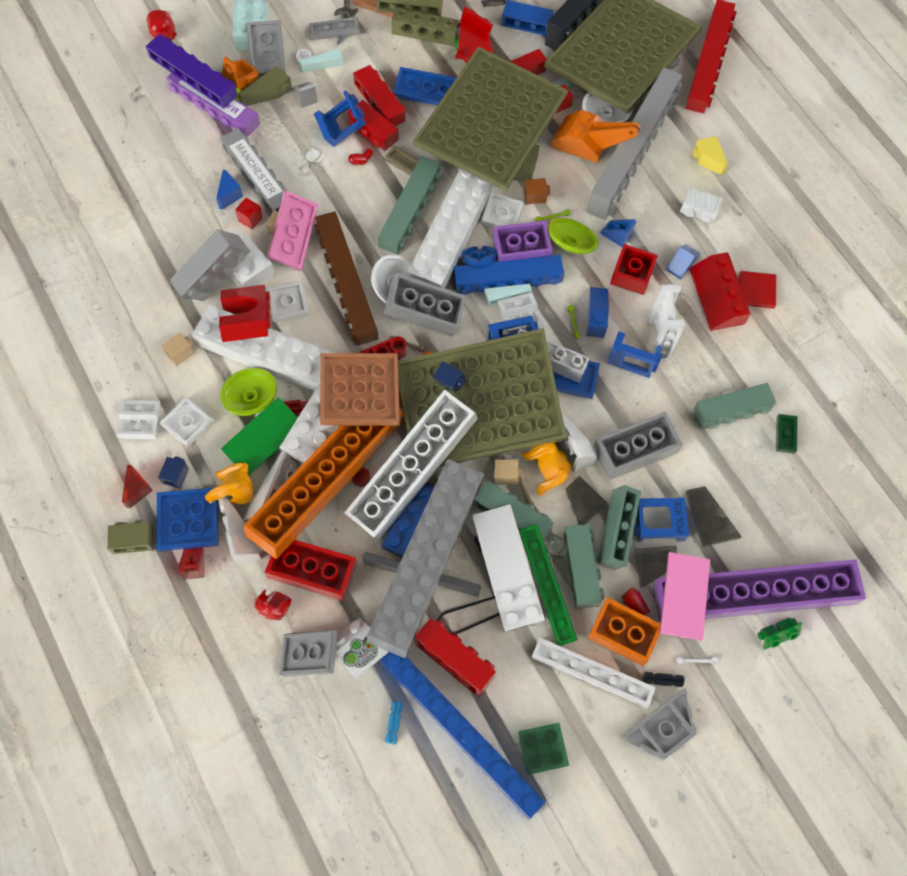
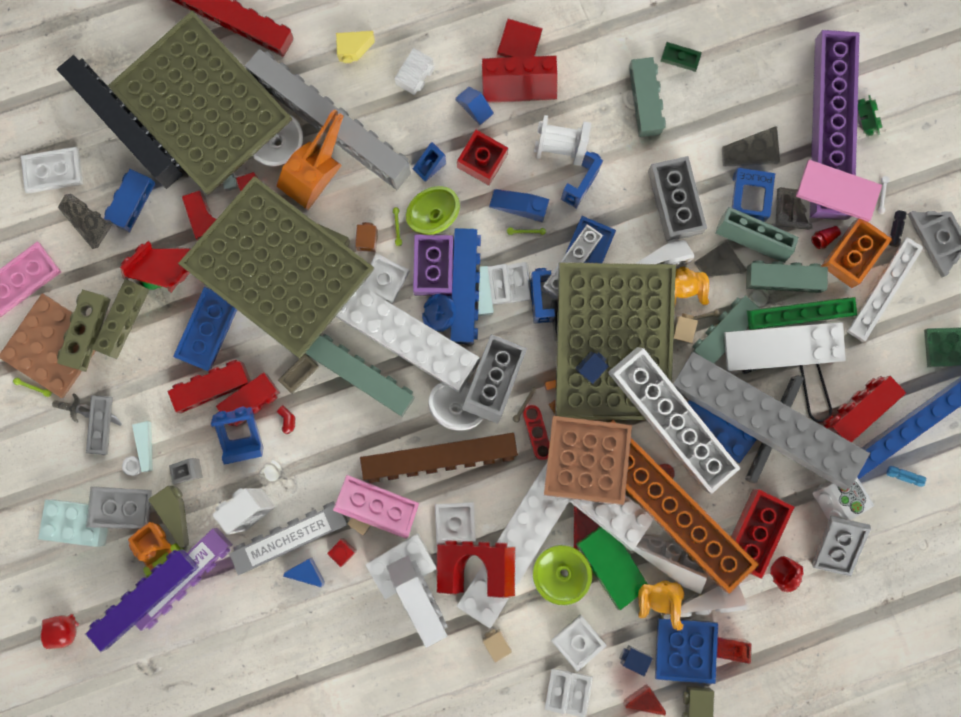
camera: 80 degrees left, 15 degrees up
(274, 124) = (243, 510): none -> white brick

